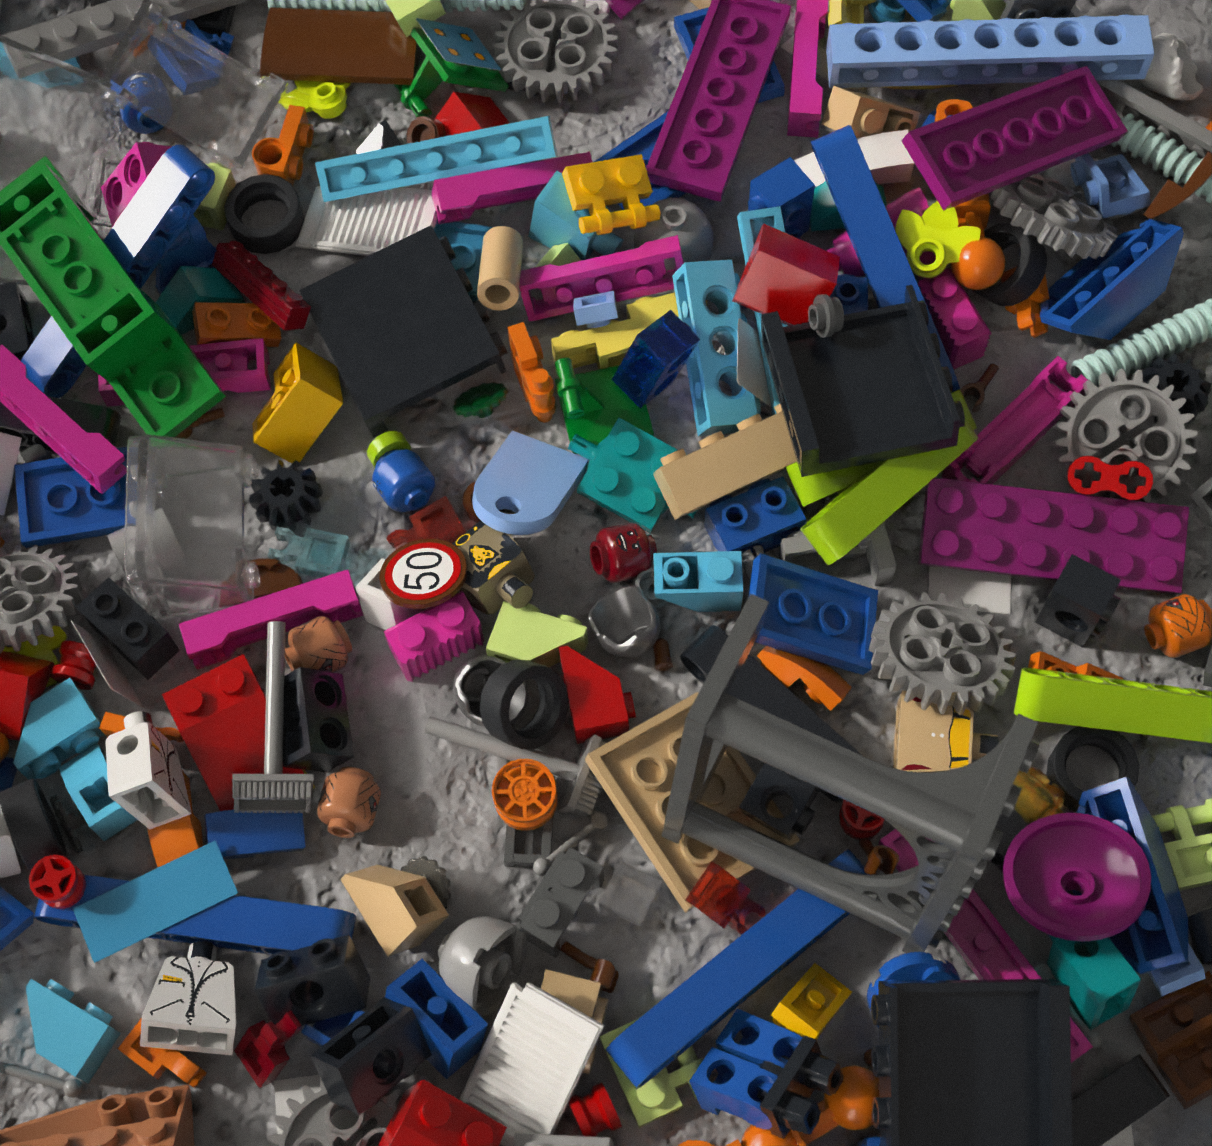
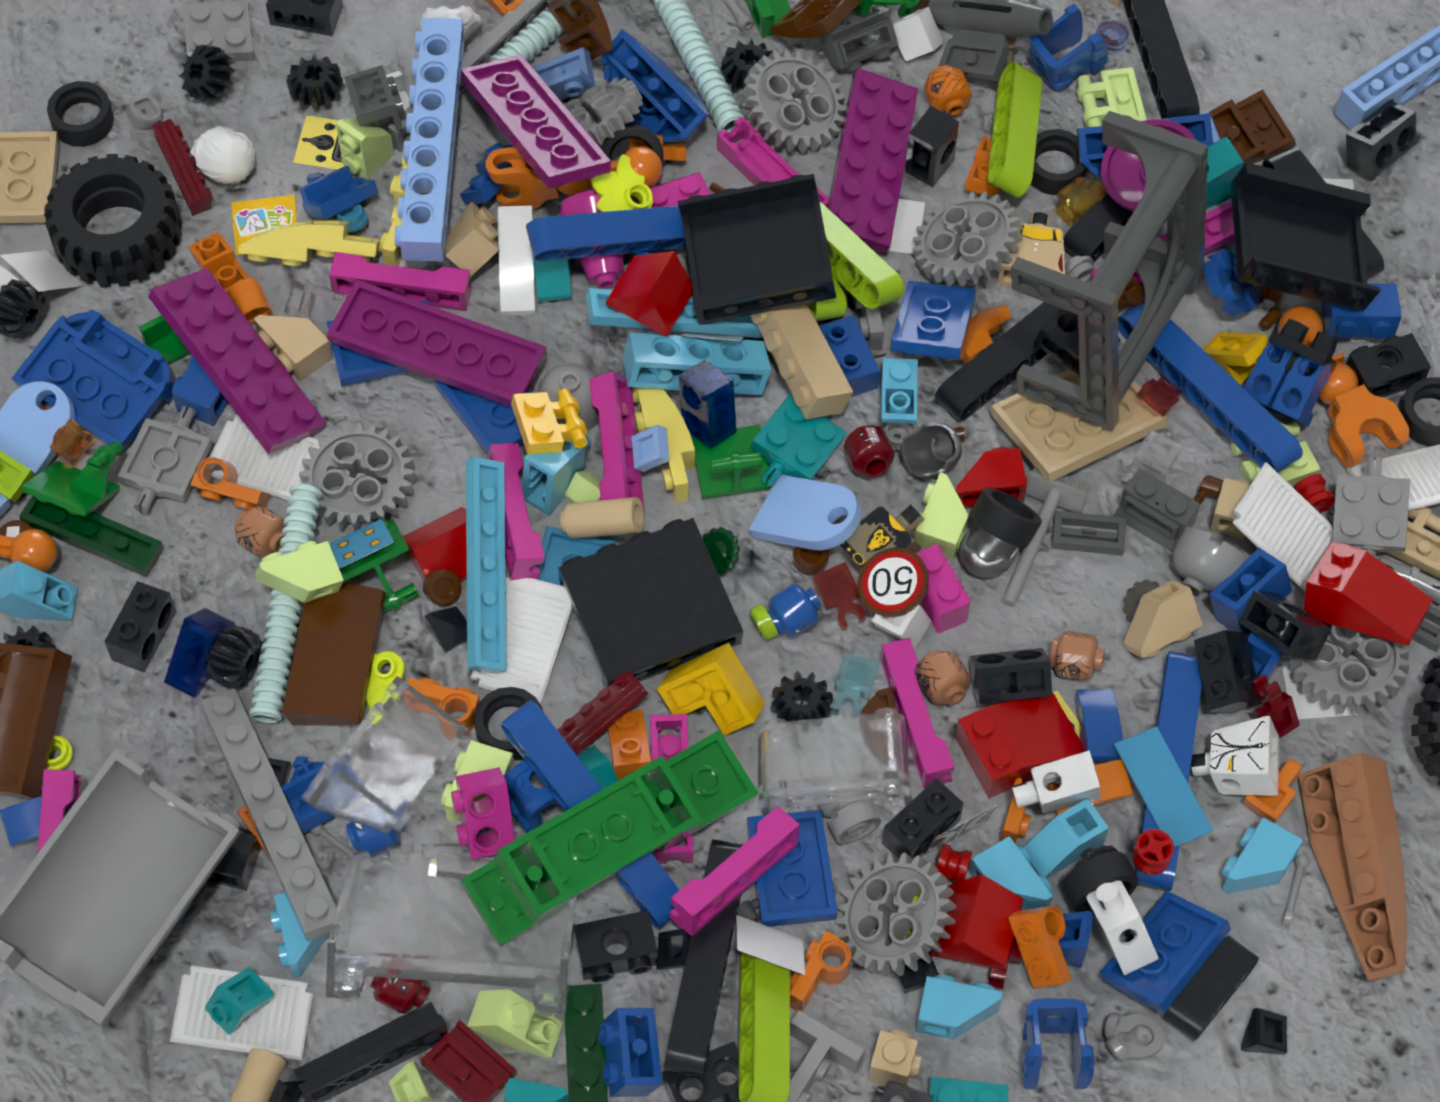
camera: 90 degrees left, 5 degrees down
(273, 789) = (1074, 700): light grey piece -> none
(525, 794) = (1075, 524): orange wheel -> none
(532, 377) = (708, 501): orange plate -> none
(597, 822) = (1129, 519): light grey hinge -> none
(785, 187) = (560, 307): blue brick -> none
(826, 315) = (697, 264): dark grey plate -> none
(1110, 477) = (834, 110): red axle -> none

